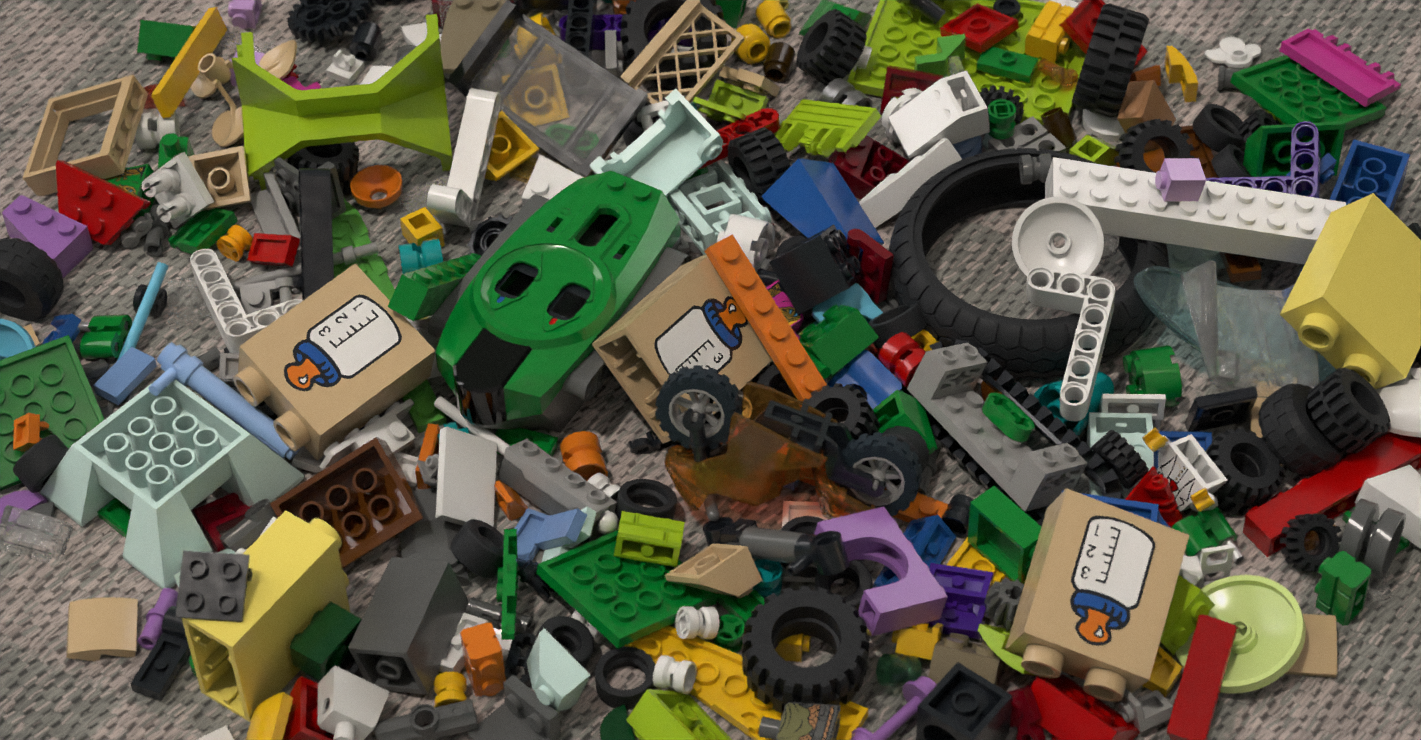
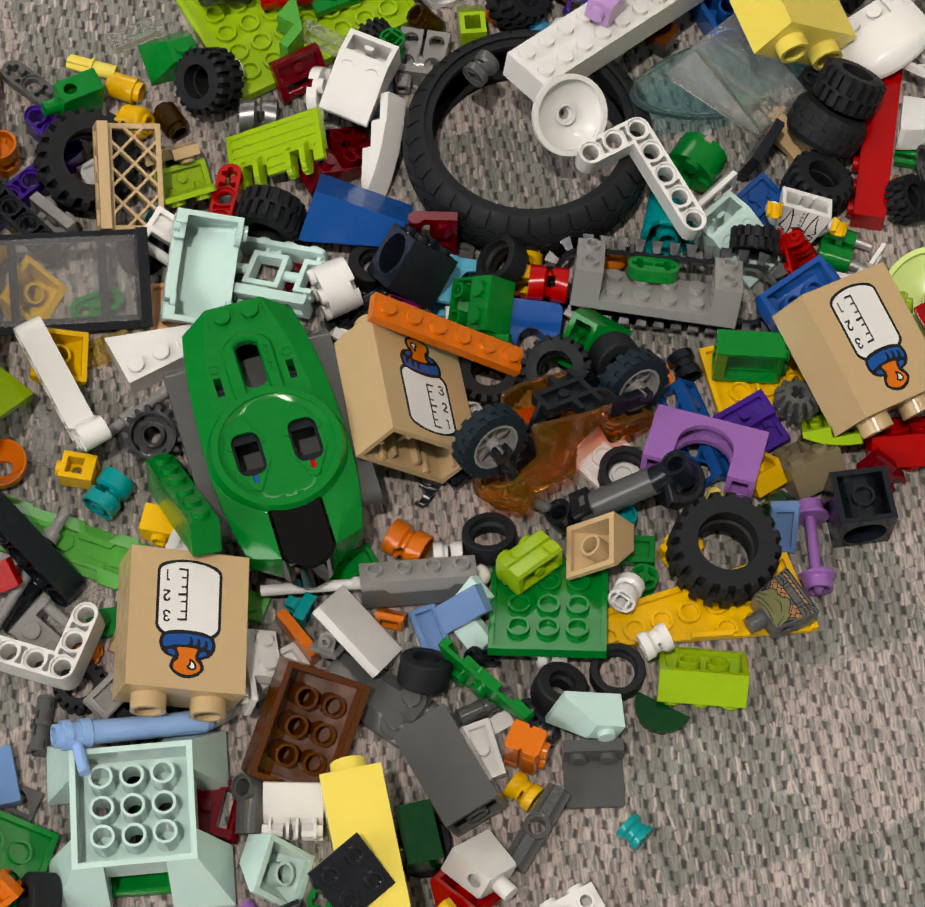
camera: 50 degrees left, 15 degrees up
(884, 684) = (787, 520): none -> medium blue tile

